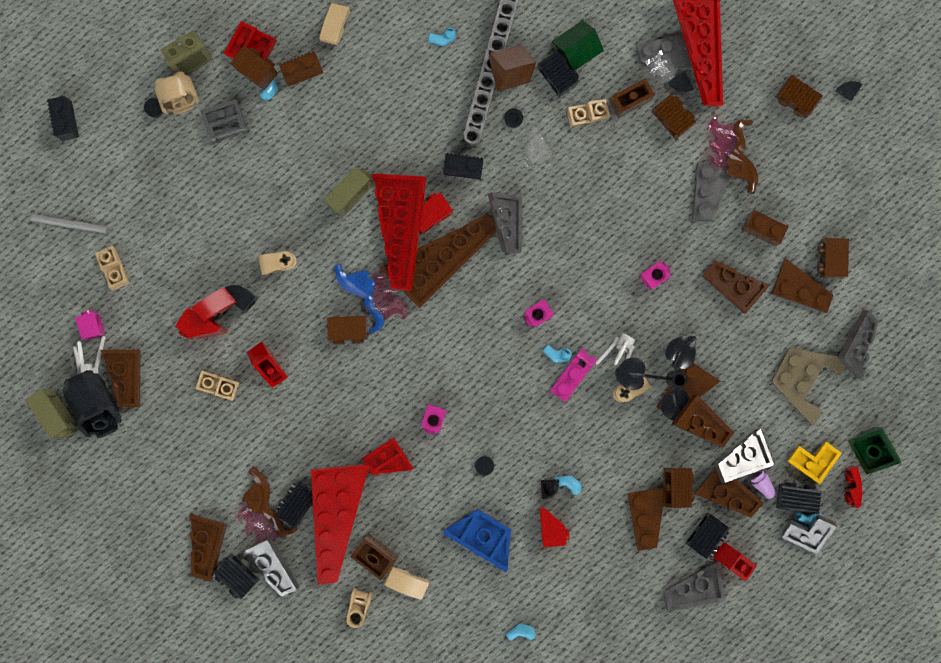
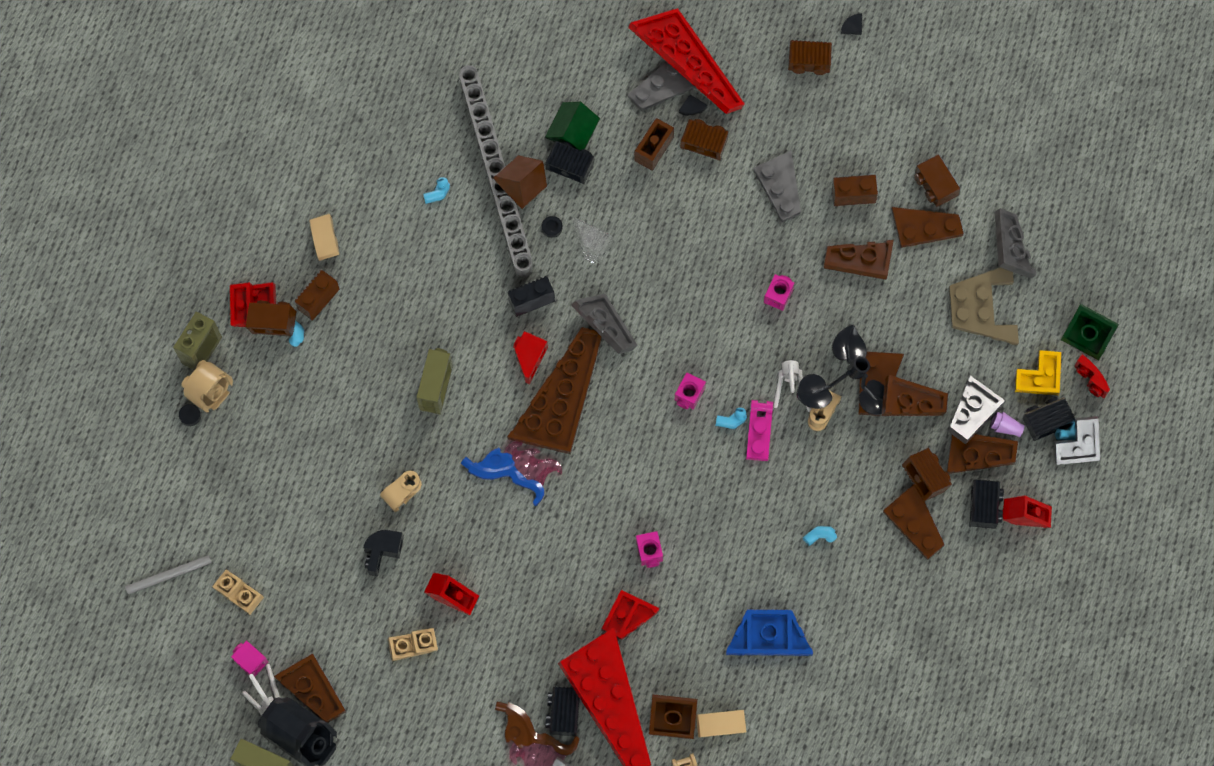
camera: 30 degrees left, 15 degrees down
(63, 118) = (104, 475): black brick -> none
(192, 327) = (363, 591): red slope -> none
(213, 304) = (366, 559): slope -> none
(223, 115) = (264, 382): dark grey plate -> none
(347, 328) = (511, 513): reddish brown brick -> none
(400, 216) = (498, 375): red wing -> none
(484, 465) = (727, 566): black tile -> none
(521, 630) = (863, 703): medium azure arm -> none
(549, 487) = (804, 549): black tile -> none
(552, 530) = (831, 585): red slope -> none
(588, 113) = (622, 180): tan slope -> none
(661, 67) = (665, 101): clear slope -> none
(696, 590) = (1009, 561): flat silver wing -> none
(730, 151) = (775, 137): piece -> none

